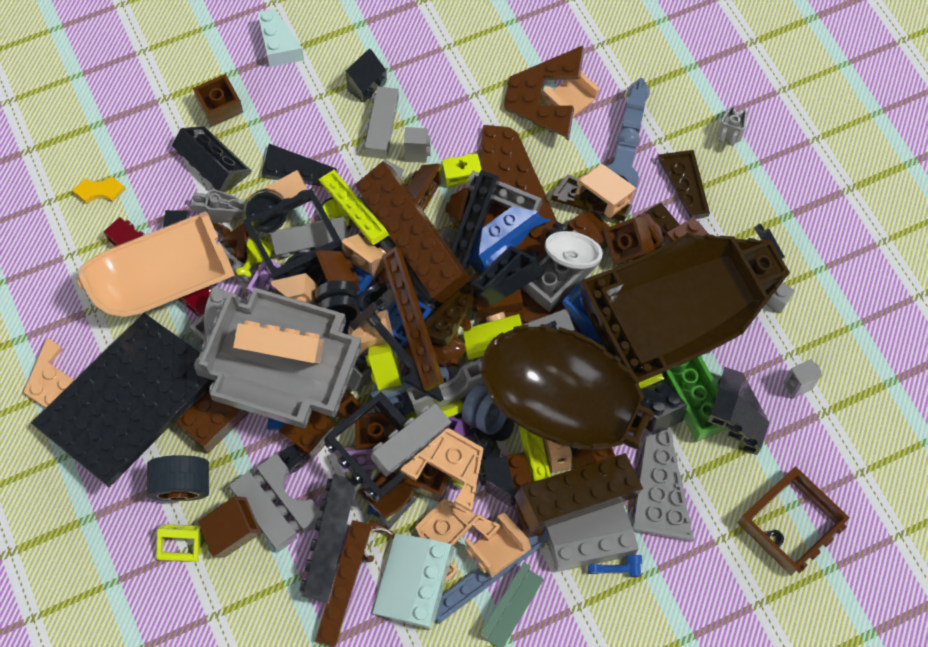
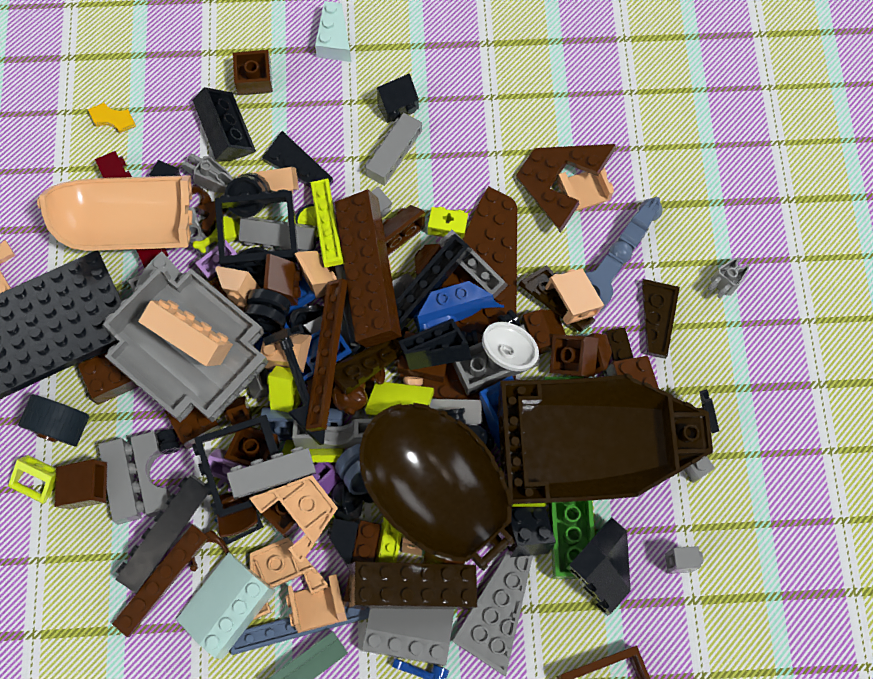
camera: 20 degrees right, 5 degrees up
(416, 144) = (414, 183): light grey brick -> none

